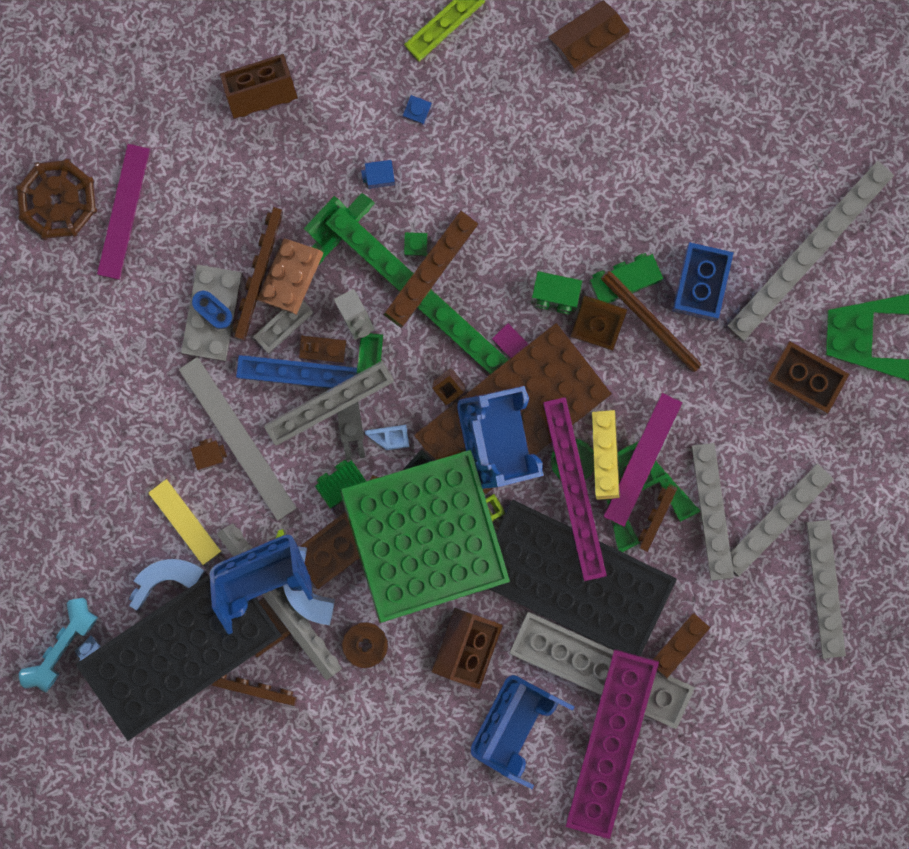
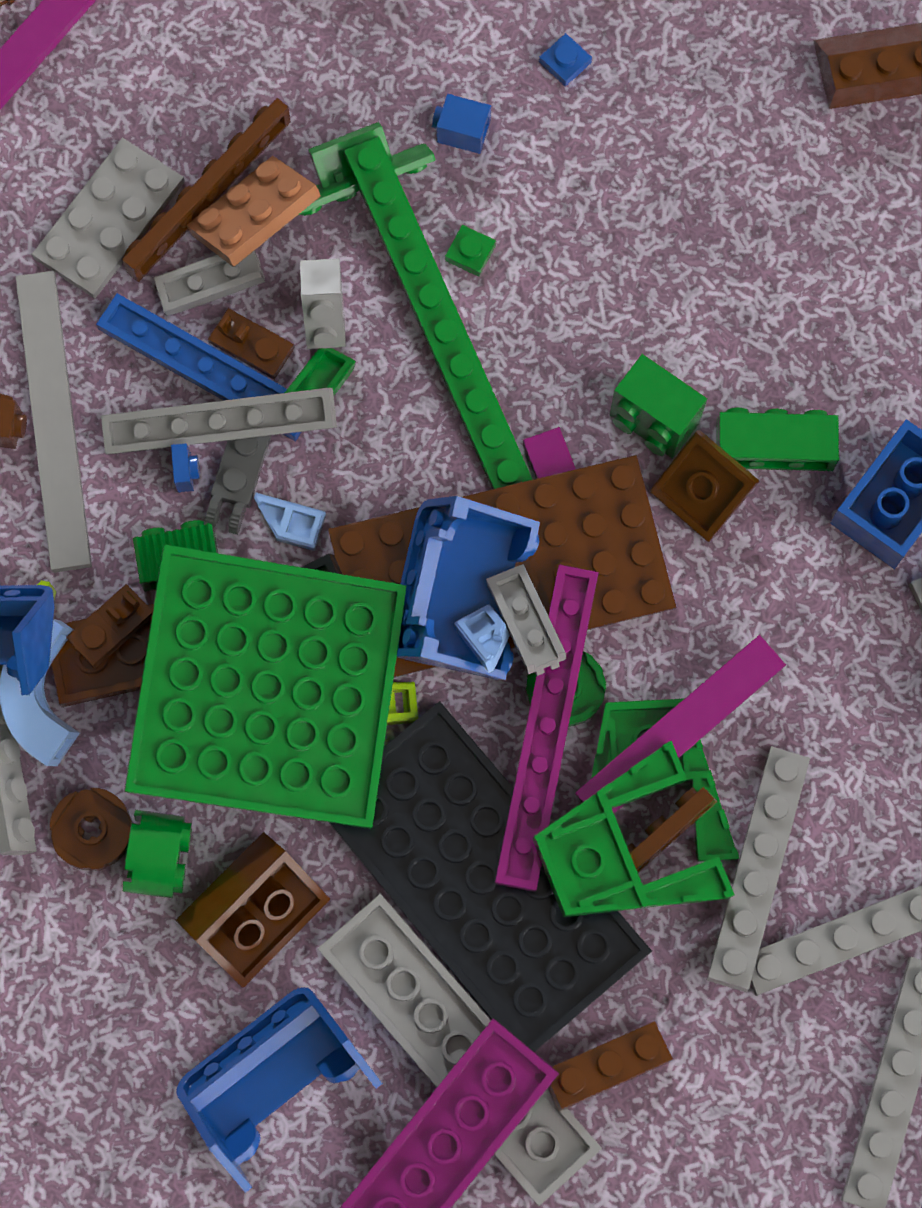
camera: 25 degrees right, 10 degrees down
(212, 310) = (110, 207): blue plate -> none
(322, 434) = (184, 467): none -> blue plate
(325, 537) = (110, 626): none -> reddish brown plate
(406, 643) = (155, 854): none -> green brick
(430, 269) = (473, 289): reddish brown plate -> none
(448, 386) = (419, 478): reddish brown brick -> none
(522, 457) = (484, 635): none -> light blue tile
(540, 439) = (526, 620): none -> light grey hinge
(605, 454) = (622, 696): light yellow plate -> none
(627, 548) = (592, 863): none -> green wing
(651, 321) = (790, 518): reddish brown axle -> none

